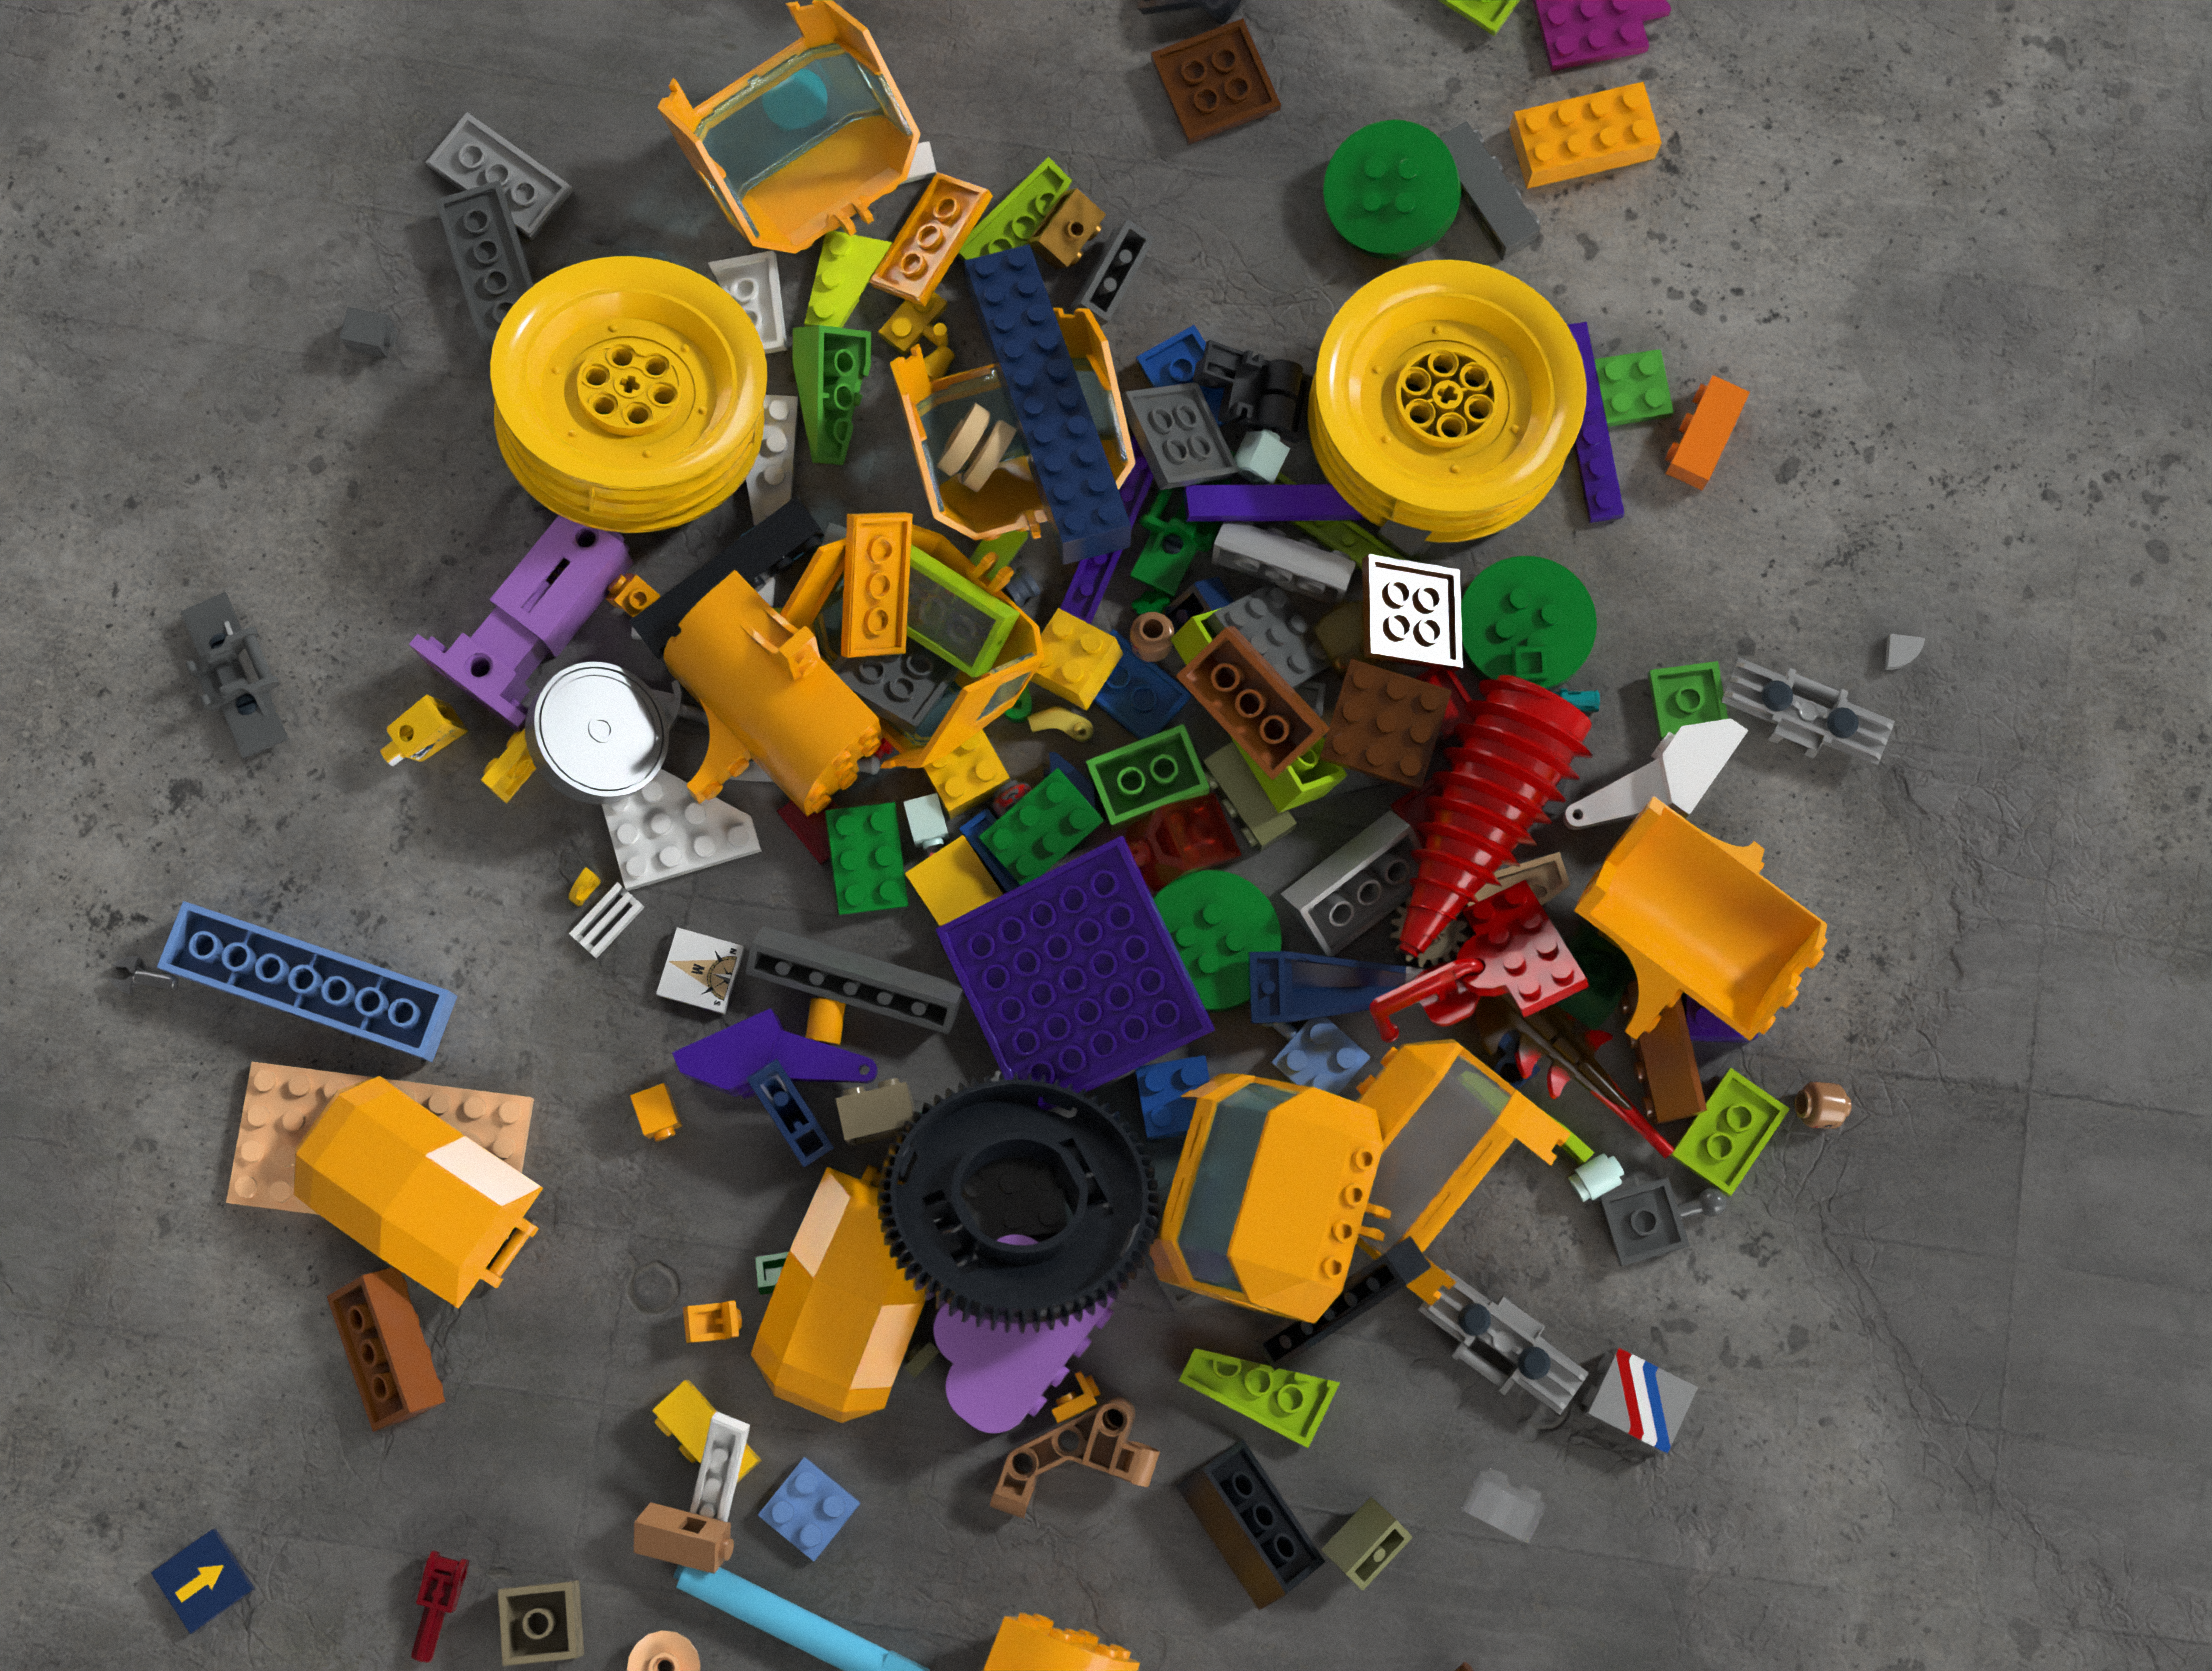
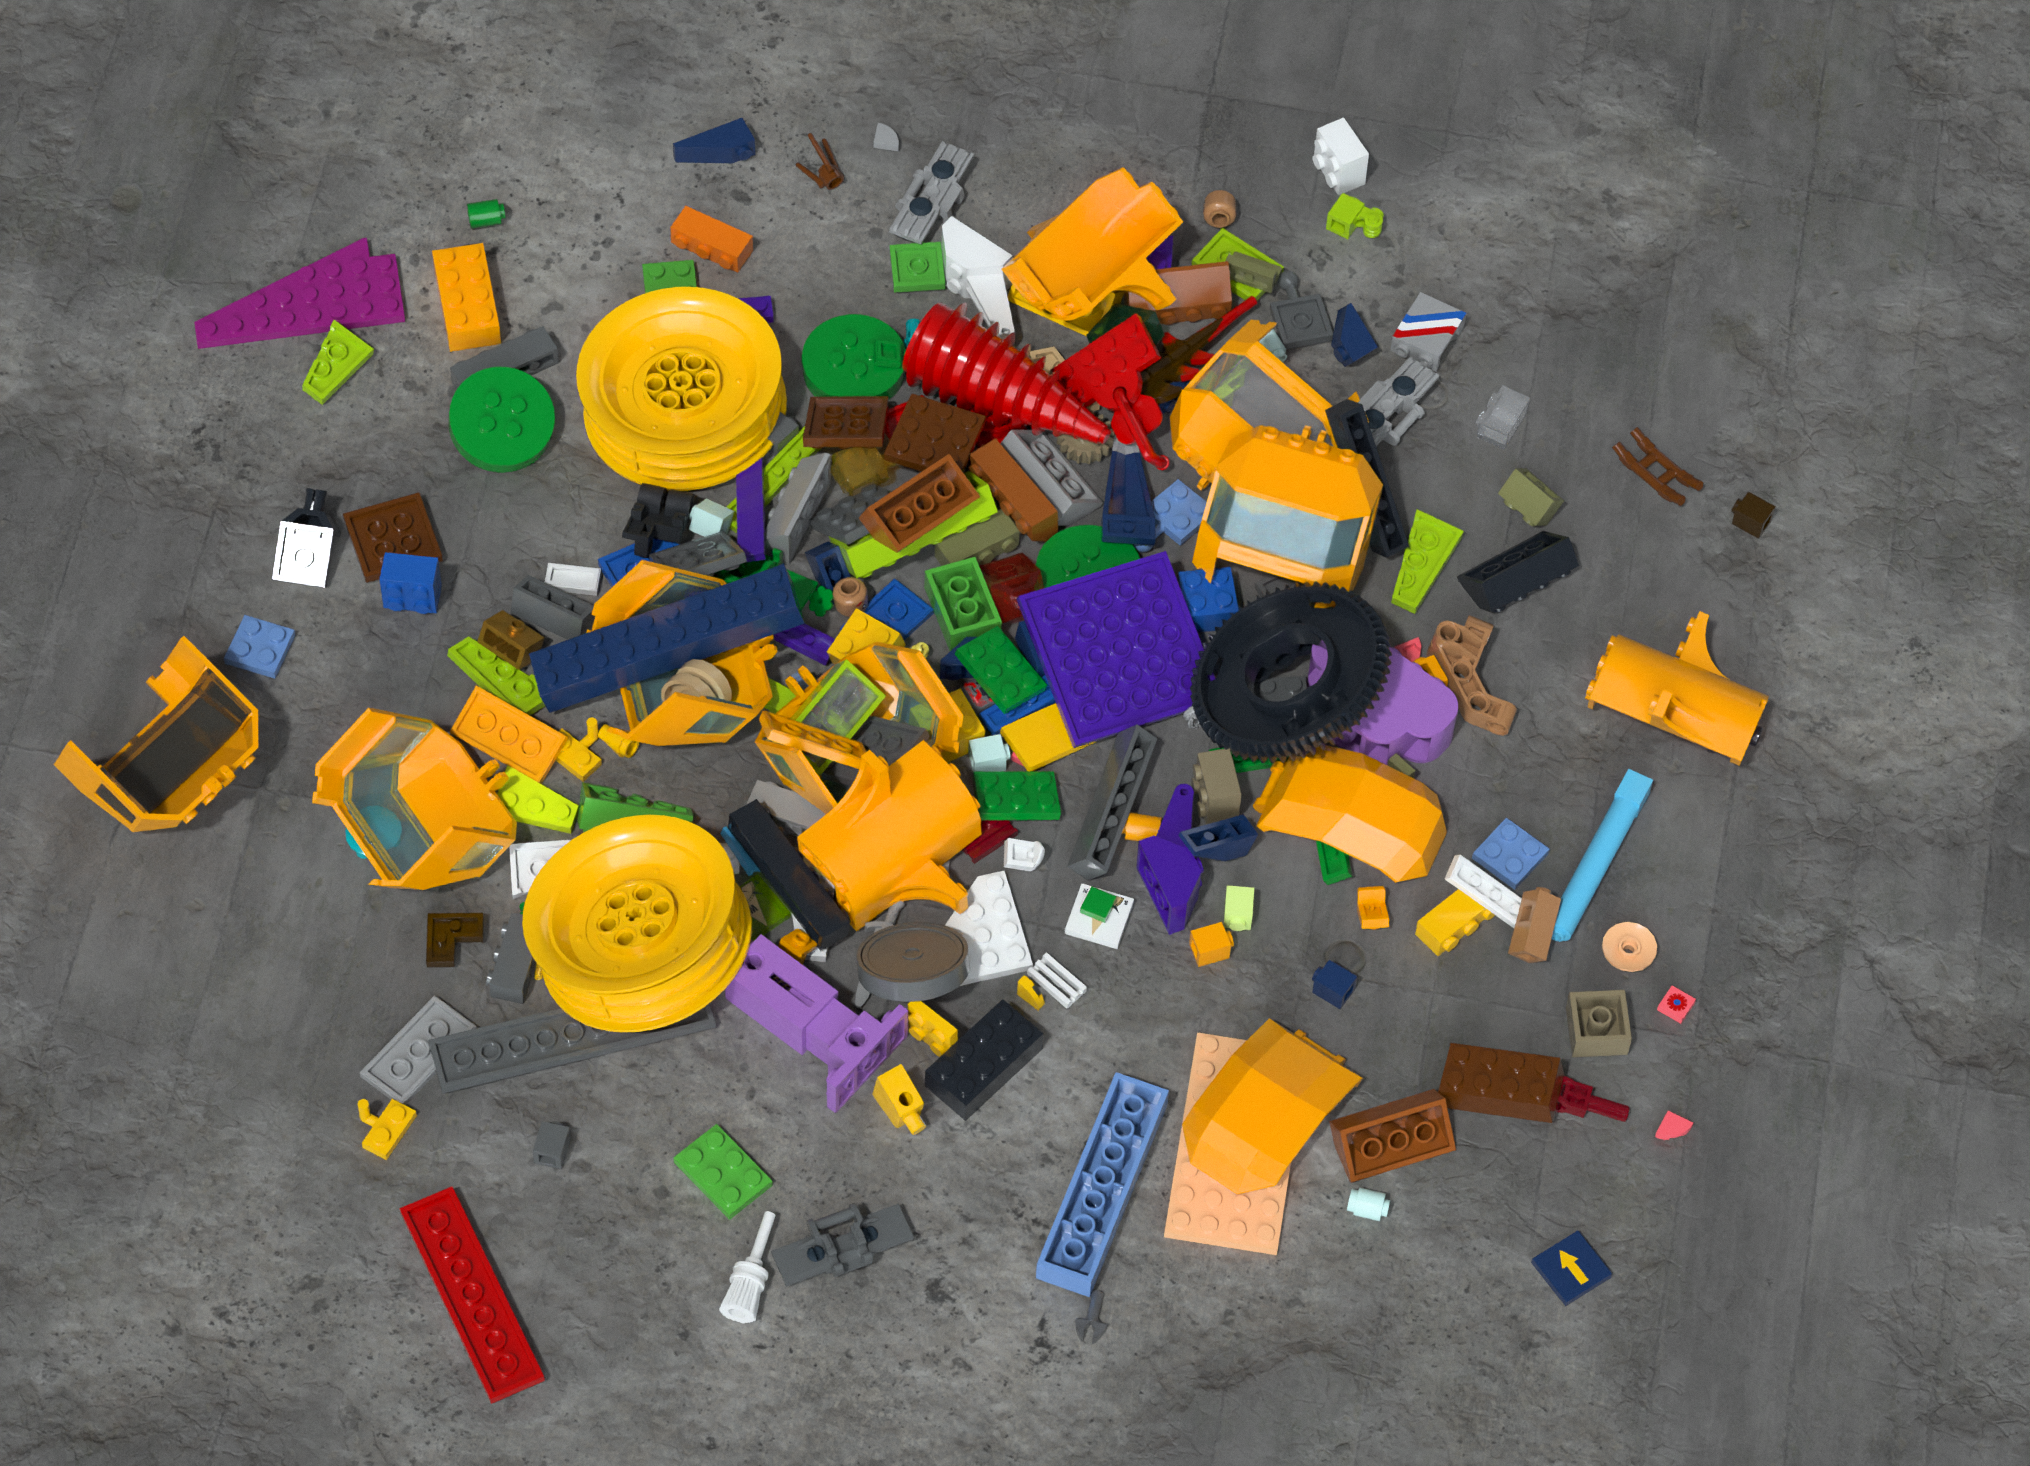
camera: 90 degrees left, 20 degrees down
(175, 259) = (472, 1295): none -> red plate
(187, 567) = (748, 1279): none -> white piece
(287, 1317) = (1368, 1204): none -> light aqua brick
(340, 532) = (723, 1171): none -> bright green plate
(395, 150) = (387, 1128): none -> yellow plate
(446, 1489) = (1501, 1082): none -> reddish brown brick
(484, 831) = (984, 1059): none -> black brick
(601, 1271) = (1334, 984): none -> dark blue brick
(655, 189) = (448, 929): none -> dark brown plate
(694, 542) = (764, 905): none -> clear neon green tile
(707, 966) = (1098, 904): none -> green tile
(709, 1146) = (1238, 908): none -> yellowish green brick
(782, 870) = (1023, 854): none -> white plate
(1115, 1373) = (1411, 649): none -> coral tile
(1134, 101) = (410, 583): none -> blue brick
(1170, 300) = (573, 578): none -> white tile
(1315, 834) = (1015, 491): none -> dark orange slope
(1612, 1289) = (1350, 336): none -> dark blue slope
(1716, 1150) = (1253, 271): none -> olive panel
(1721, 148) = (485, 213): none -> green brick
(1829, 579) = (829, 173): none -> reddish brown plant
(1833, 1289) = (1351, 213): none -> lime brick
(1865, 438) = (718, 145): none -> dark blue slope
(1924, 1272) = (1340, 156): none -> white brick

